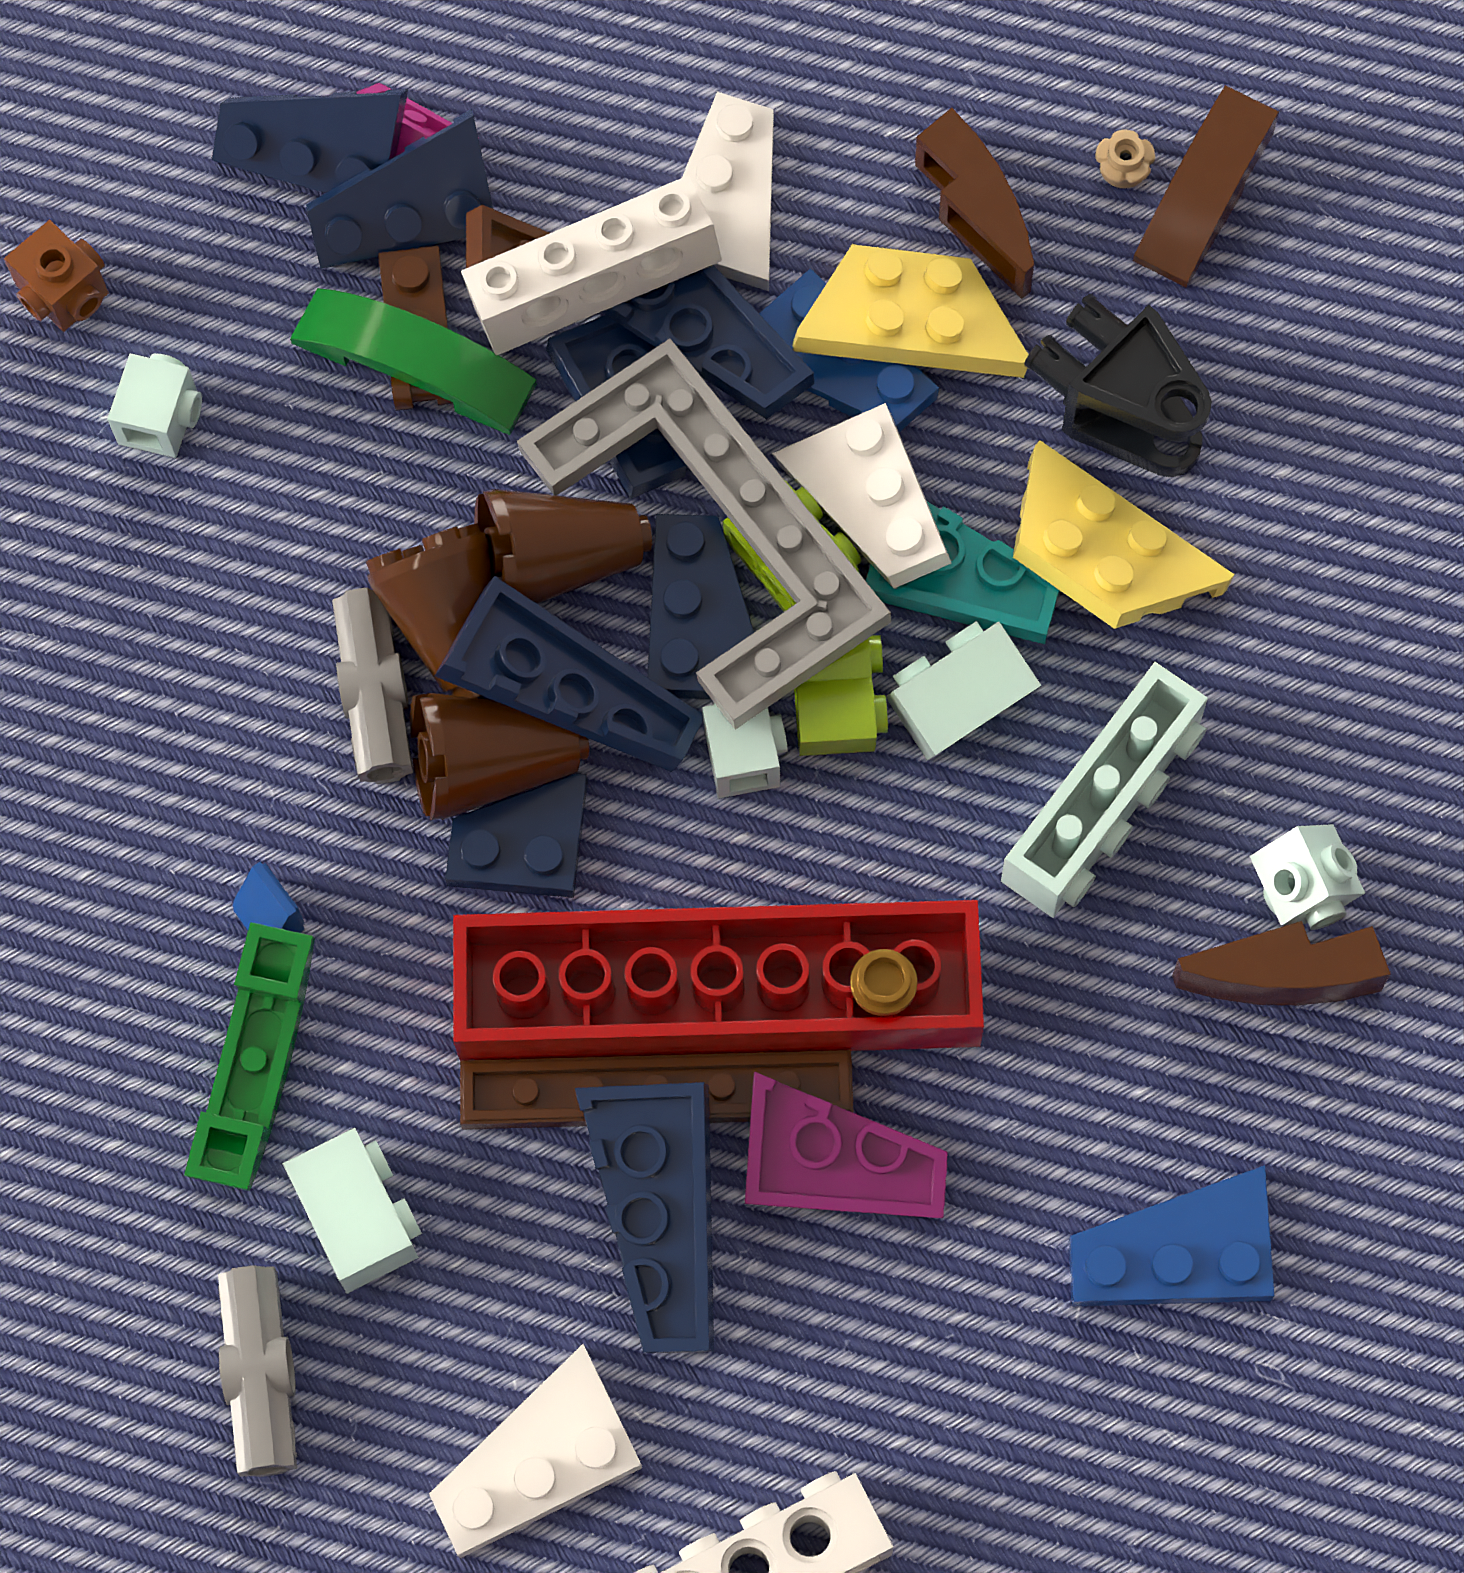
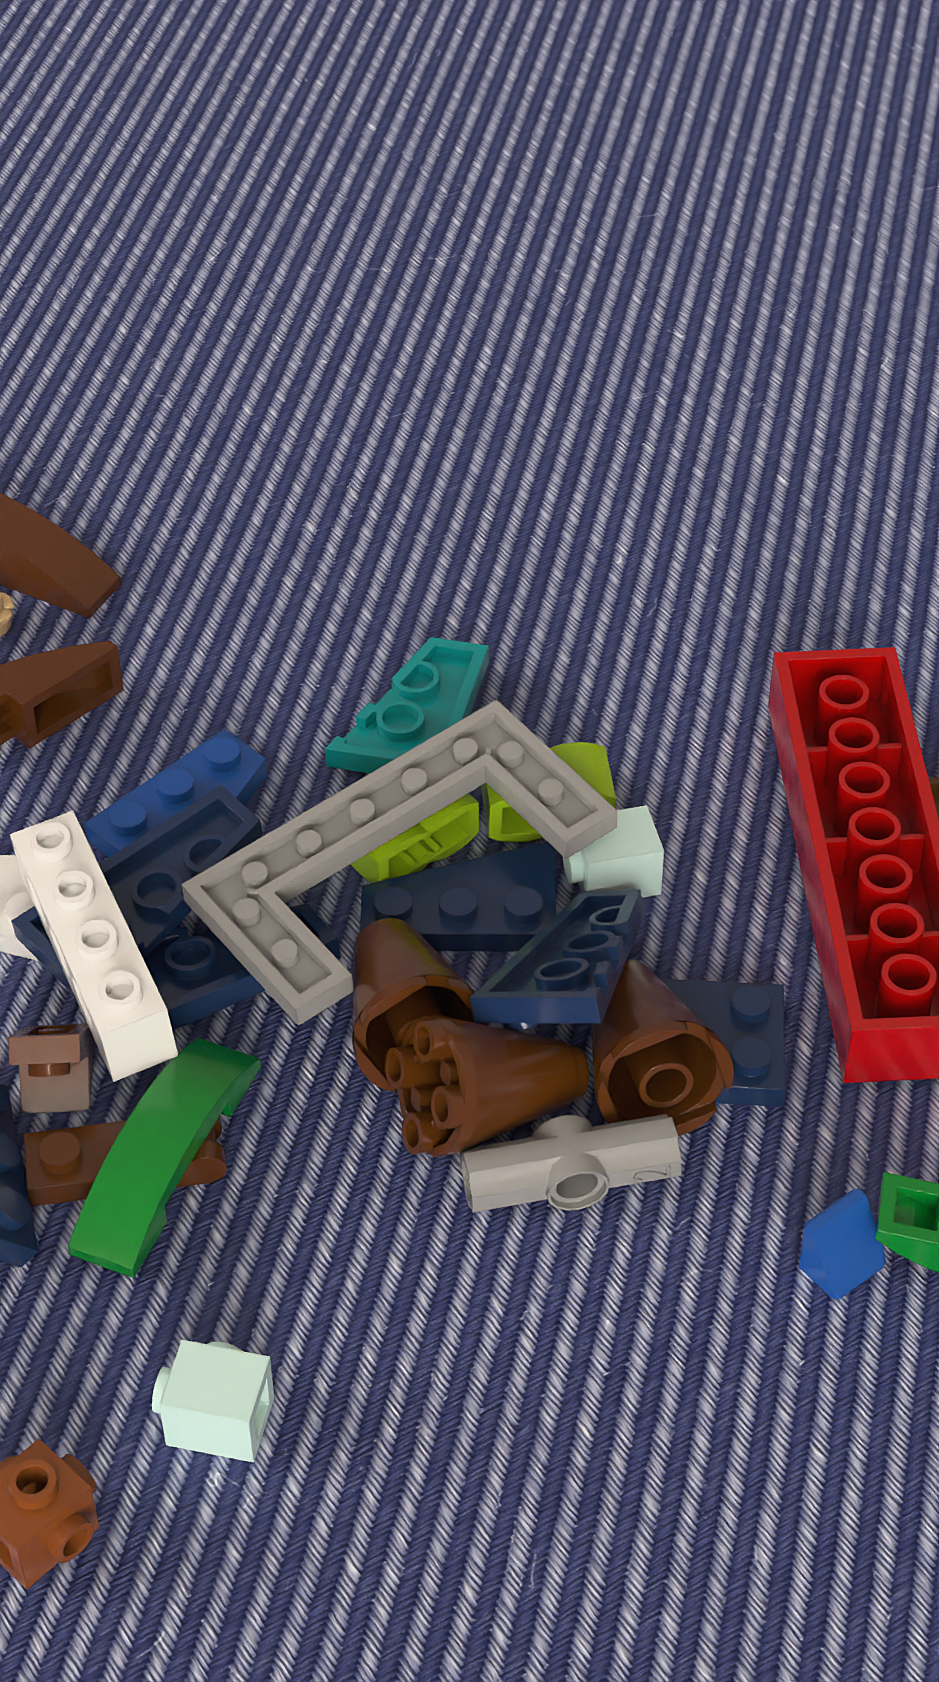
camera: 95 degrees left, 25 degrees down
(870, 493) = (343, 748): white wing -> none
(883, 982) = (872, 696): pearl gold plate -> none
(911, 313) = (145, 740): light yellow wing -> none
(962, 688) = (551, 690): light aqua brick -> none
(1104, 790) = (644, 601): light aqua brick -> none
(1105, 547) = (391, 618): light yellow wing -> none
(1127, 389) = (232, 577): black piece -> none
(1286, 968) = (783, 505): reddish brown slope -> none
(1308, 876) = (706, 487): light aqua brick -> none

